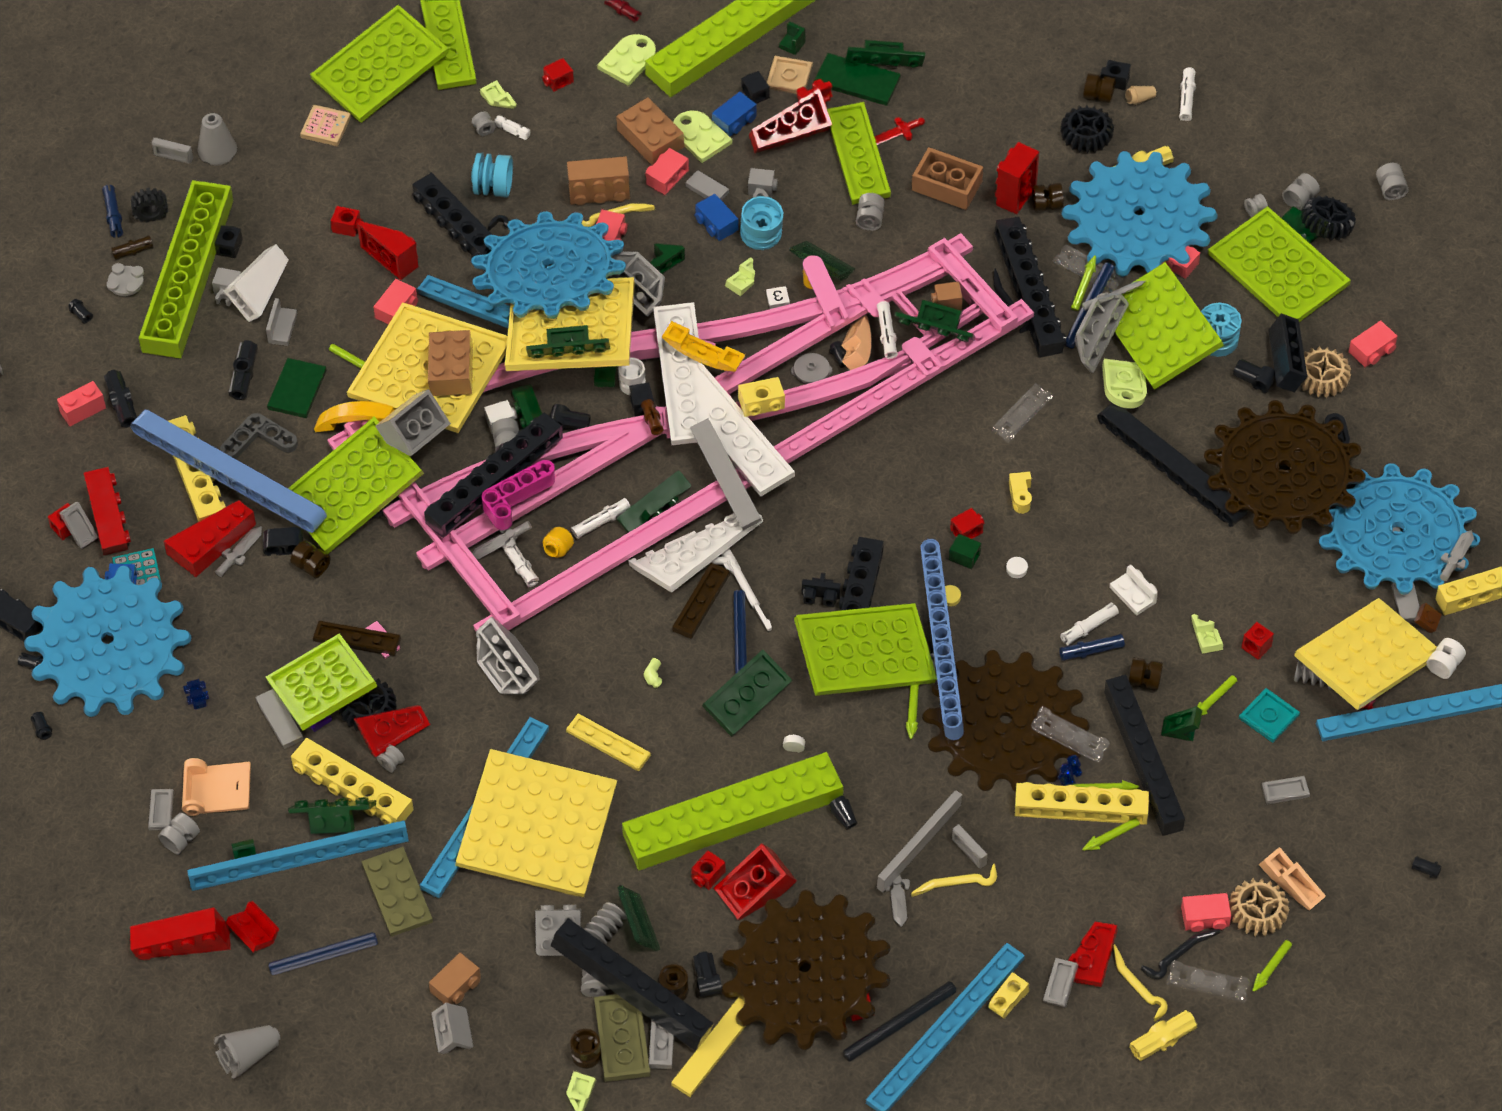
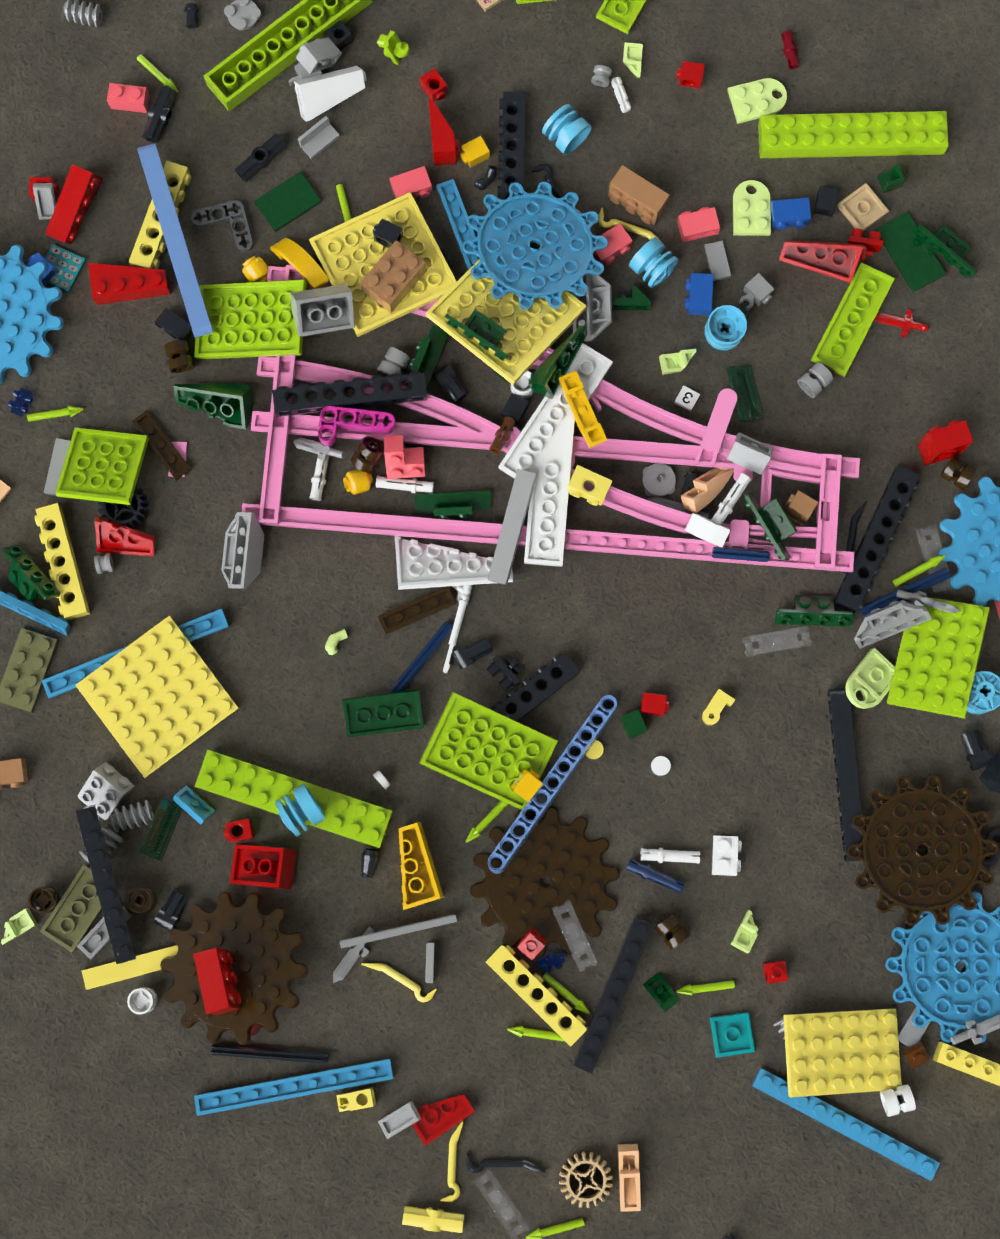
camera: 40 degrees right, 25 degrees up
(84, 372) = (160, 76): none -> lime piece
(227, 258) = (318, 55): none -> light grey brick
(228, 688) = (71, 410): none -> lime piece
(239, 550) = (141, 307): light grey sword -> none
(286, 215) = (393, 46): none -> lime hips
(316, 450) = (255, 269): none -> yellow head
(381, 567) = (225, 401): none -> dark green wedge
(414, 339) = (387, 233): none -> black brick
(428, 244) = (475, 152): none -> yellow brick
(456, 263) = (488, 179): none -> black arm
(499, 411) = (404, 341): white brick -> none
(552, 518) = (367, 454): none -> dark brown wheel
(580, 497) = (402, 461): none -> coral brick
(608, 742) = (260, 670): light yellow tile -> none
(649, 130) = (715, 179): medium nougat brick -> none
(650, 343) = (546, 376): none -> dark green wedge
(657, 217) = (651, 260): none -> medium azure wheel
(657, 882) = (193, 805): none -> dark azure plate
(749, 1059) = (142, 1000): none -> white wheel
(750, 794) = (300, 810): none -> medium azure wheel
(777, 600) = (469, 654): none -> black piece
(804, 970) = (217, 981): none -> red brick
(871, 287) = (750, 453): none -> panel
(889, 361) = (707, 530): none -> white slope
(890, 782) = (418, 871): none -> yellow wedge
(921, 650) = (527, 784): none -> yellow brick
(933, 361) = (740, 554): none -> dark blue axle
(947, 178) = (897, 397): medium nougat brick -> none
(1031, 370) = (813, 611): none -> dark green bracket
(1040, 762) = (531, 943): none -> brick
(1206, 912) = (546, 1153): coral brick -> none
(1285, 789) = (689, 1102): light grey tile -> none

